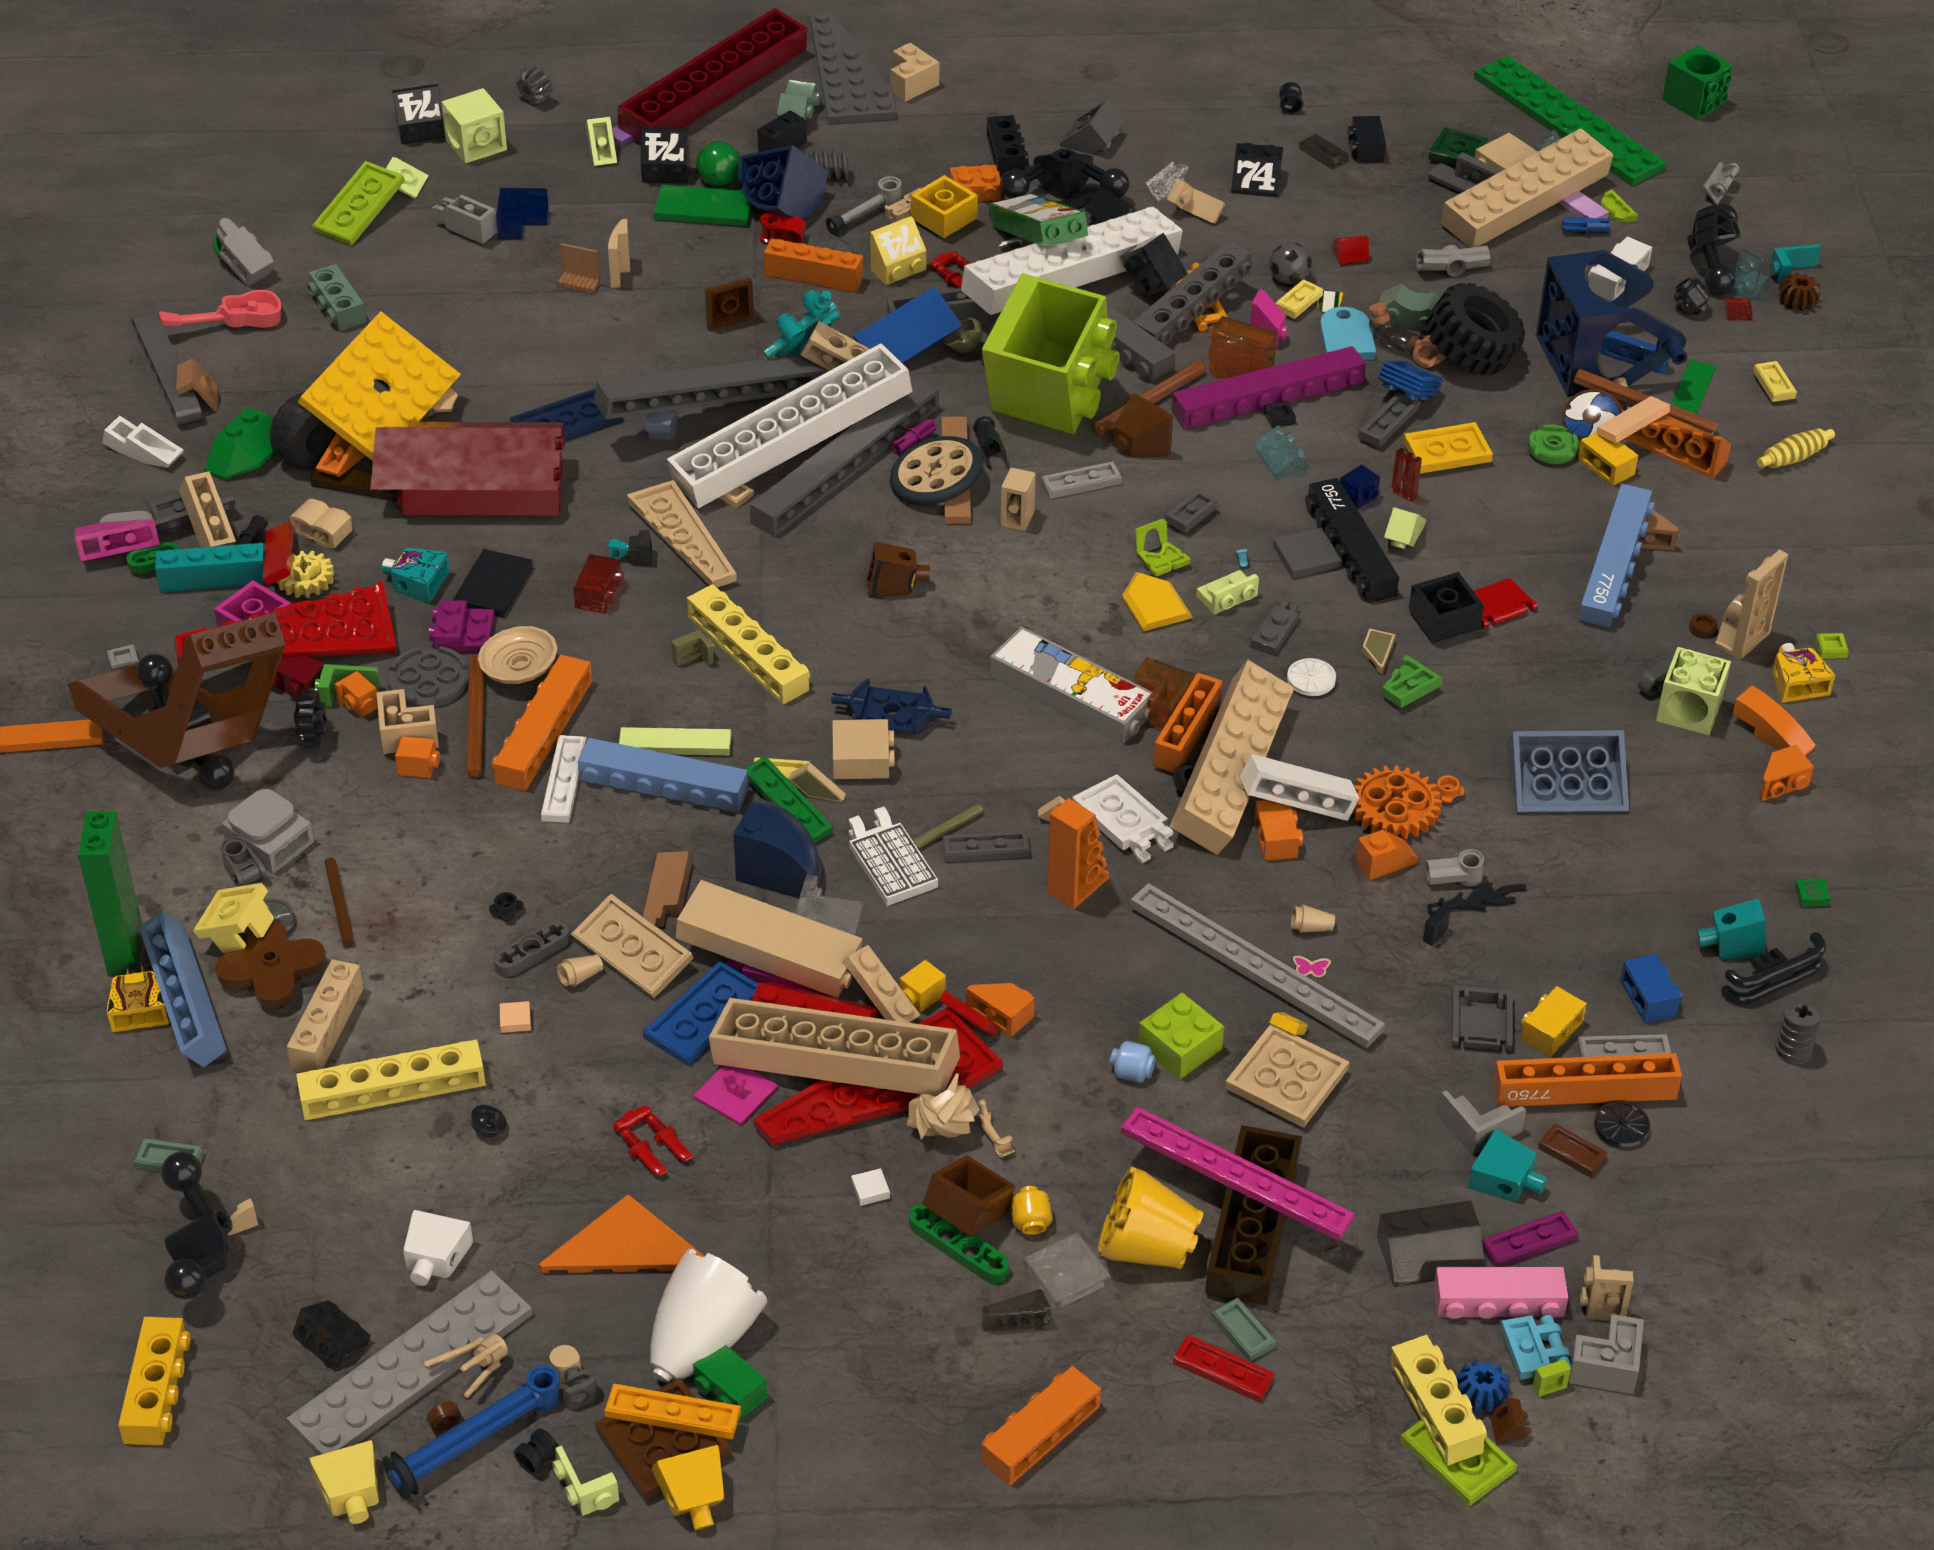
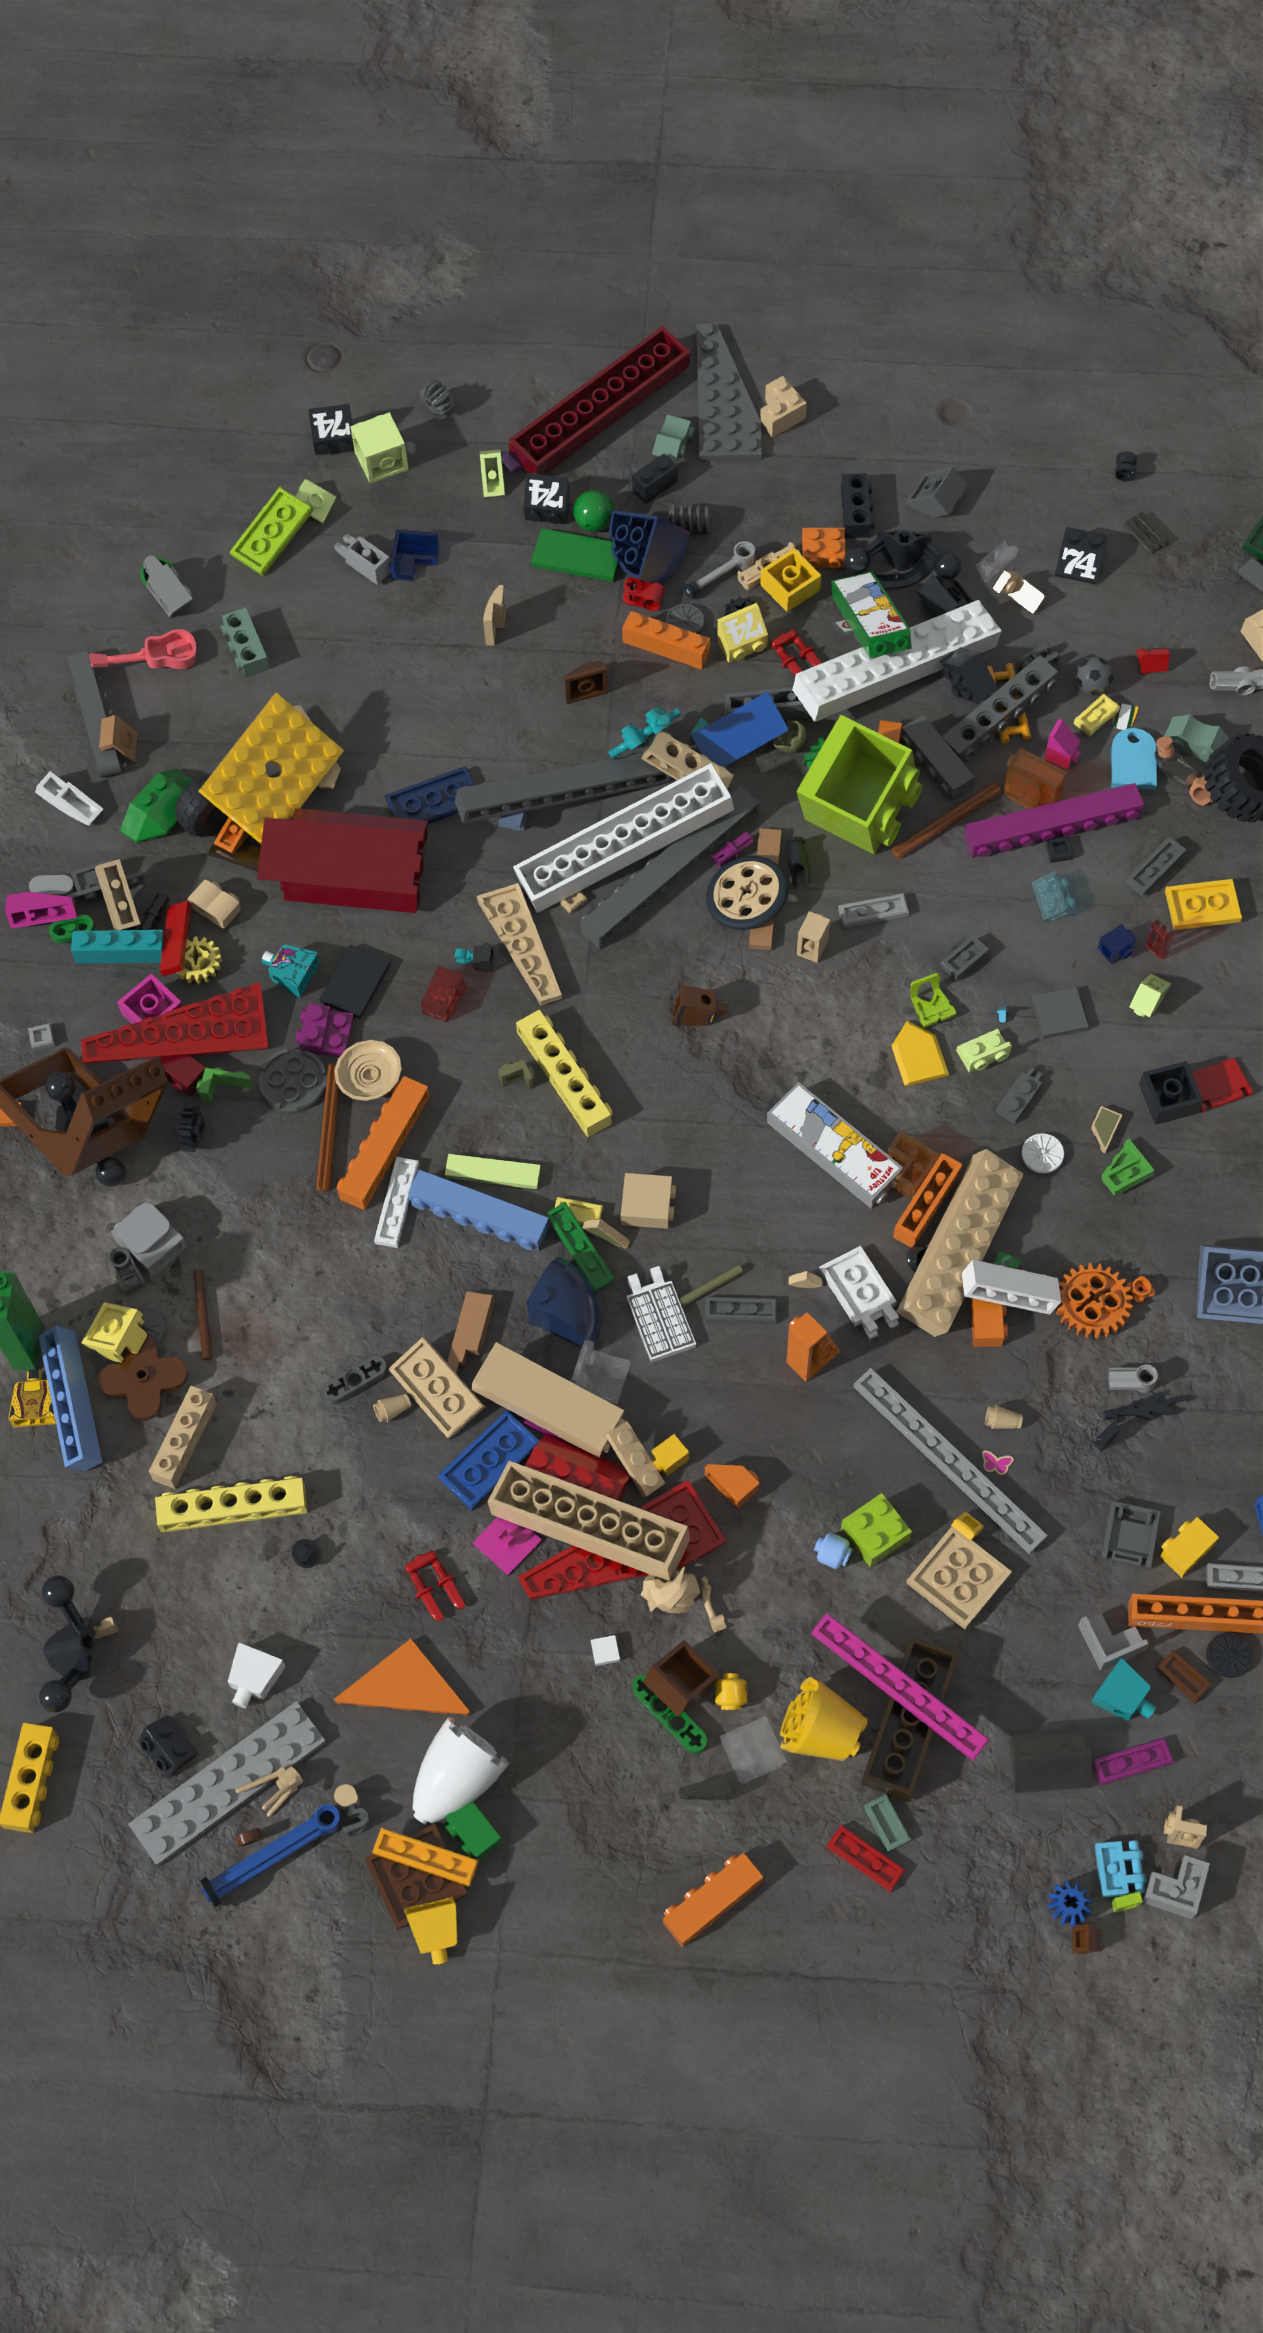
camera: 10 degrees right, 20 degrees up
(154, 1152) = (52, 1559): sand green tile -> none
(348, 1480) = (171, 1889): light yellow torso -> none
(357, 694) = (232, 1098): orange brick -> none
(400, 721) = (266, 1141): tan brick -> none
(417, 757) = (276, 1170): orange brick -> none
(506, 906) = (337, 1327): black plate -> none
(515, 1017) = (336, 1448): light nougat tile -> none
(536, 1452) = (317, 1878): black wheel -> none
(579, 269) = (458, 630): medium nougat piece -> none
(590, 1496) = (362, 1924): yellowish green bracket -> none
(912, 709) = (663, 1144): dark blue plate -> none
(969, 1013) = (705, 1487): red tile -> none
(1143, 429) = (933, 865): reddish brown slope -> none
(1352, 540) = (1100, 1005): black brick -> none
(1367, 139) = (1188, 524): black brick -> none
(1383, 854) = (1076, 1355): orange slope -> none
(1409, 378) = (1180, 826): blue brick -> none
(1426, 1379) = (1036, 1958): light yellow brick -> none
(1467, 1478) = (1041, 1960): lime tile -> none
(1500, 1292) = (1099, 1815): bright pink brick -> none

